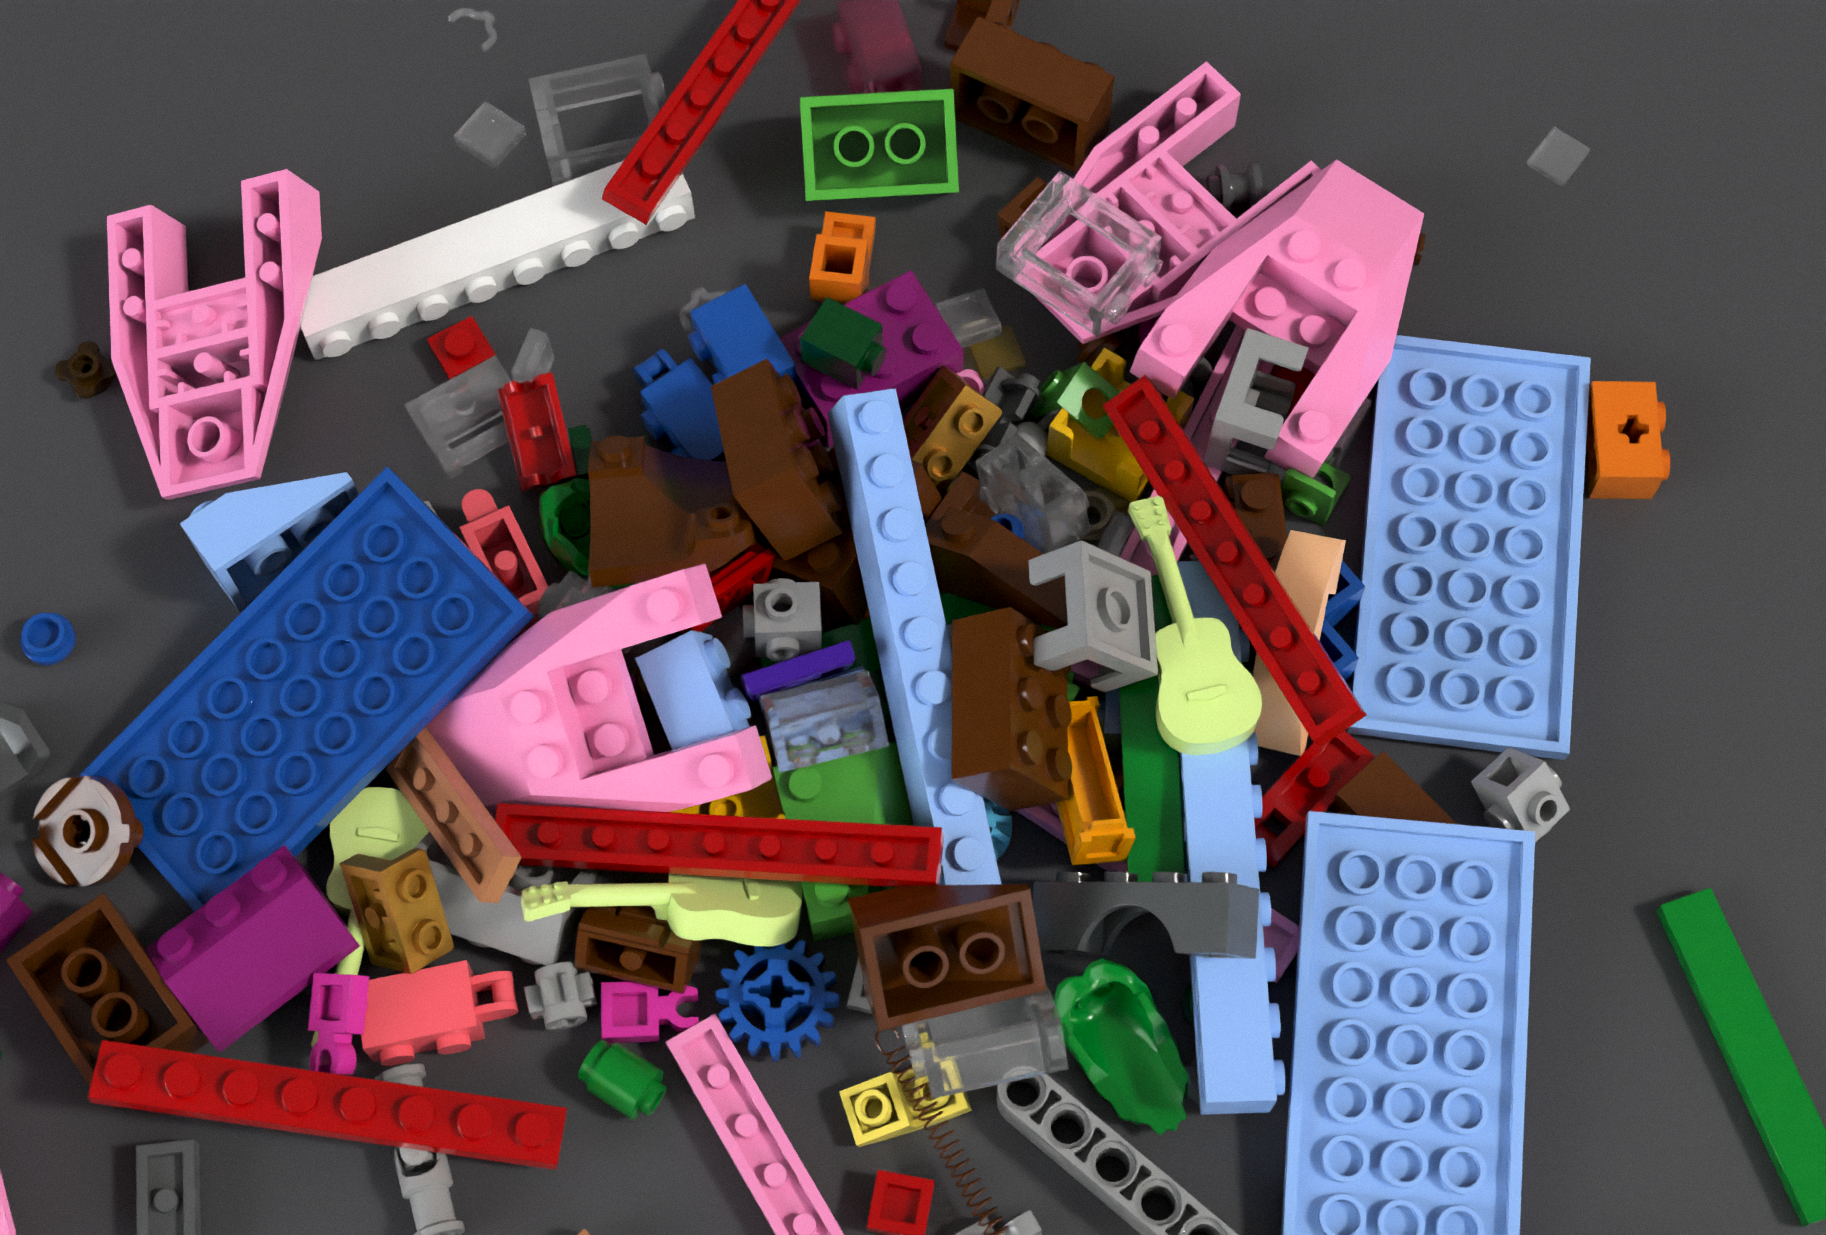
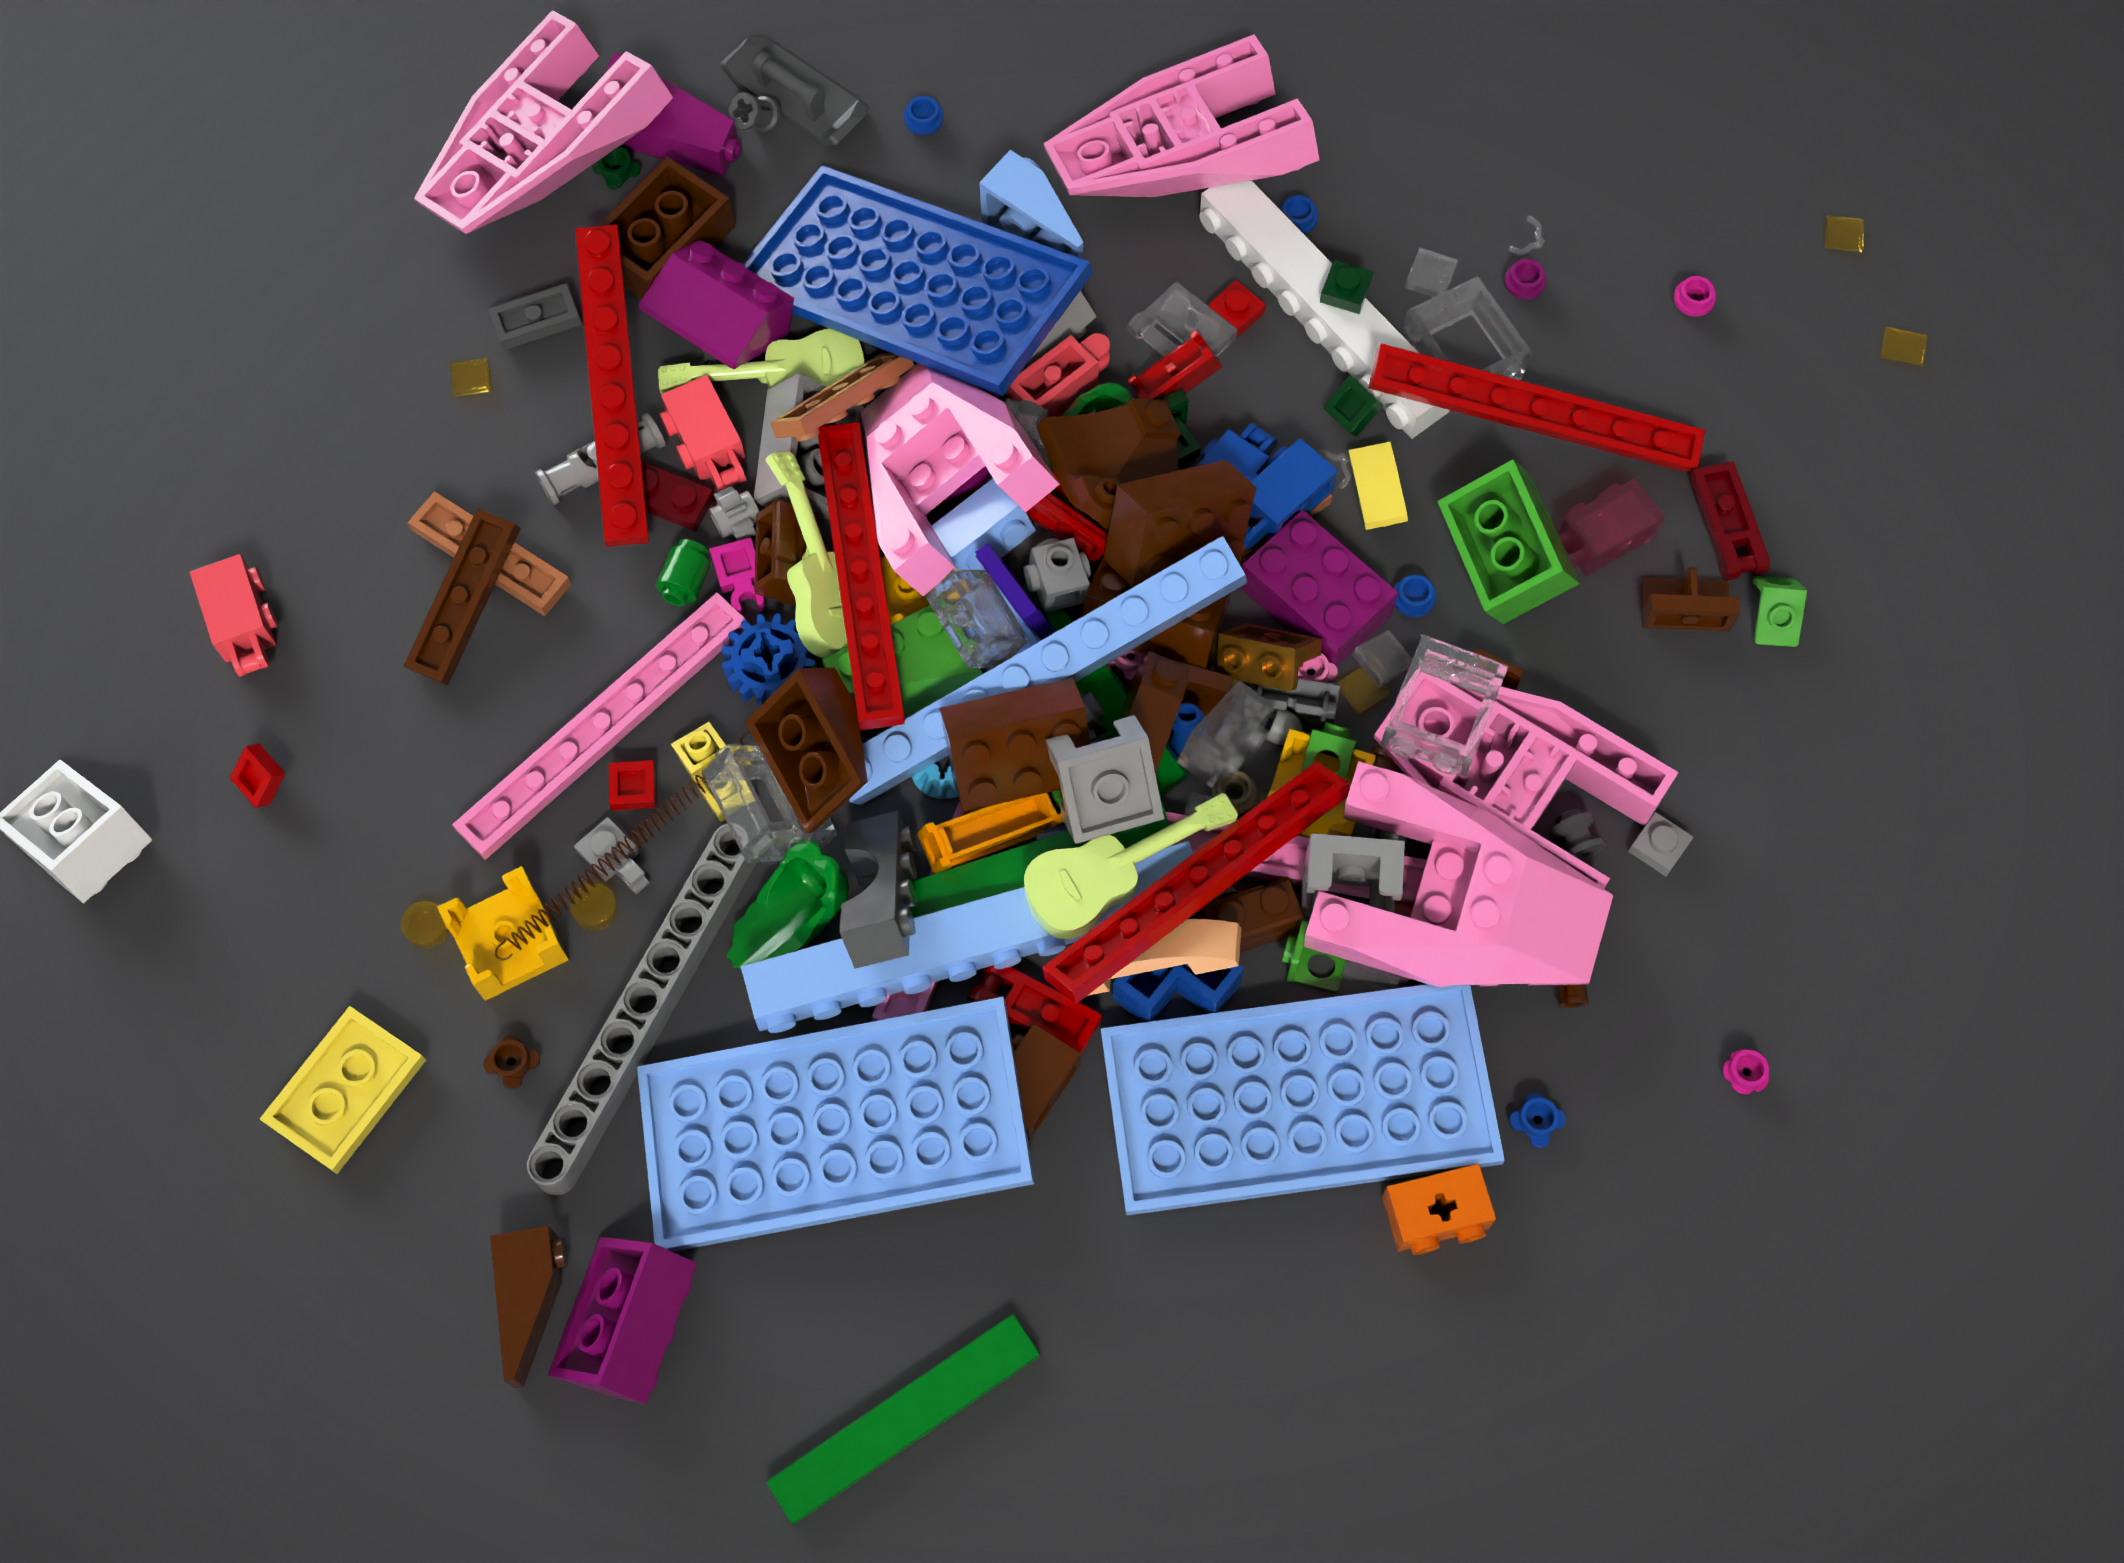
camera: 75 degrees right, 0 degrees up
(89, 383) = (1136, 62): dark brown plate -> none
(112, 834) = (782, 181): plate -> none
(337, 1013) = (679, 368): dark pink plate -> none
(357, 243) = (1301, 212): none -> blue plate
(398, 910) = (764, 386): pearl gold bracket -> none
(497, 213) = (1346, 286): none -> dark green plate
(507, 1066) = (675, 497): none -> dark red plate
(534, 357) = (1237, 355): clear tile -> none
(535, 41) = (1525, 279): none -> magenta plate
(642, 259) = (1353, 406): none -> dark green plate
(756, 260) = (1378, 485): none -> light yellow slope
(842, 257) = (1397, 548): orange brick -> none
(843, 344) = (1301, 549): dark green brick -> none
(899, 259) = (1415, 596): none -> blue plate
(1030, 94) = (1603, 643): reddish brown brick -> none
(1261, 118) = (1660, 844): none -> light grey plate
(1520, 793) = (1073, 1175): light grey brick -> none
(1532, 104) = (1758, 1070): none -> dark pink plate
(1546, 310) = (1537, 1106): none -> blue plate
(1558, 156) = (1716, 1109): clear piece -> none

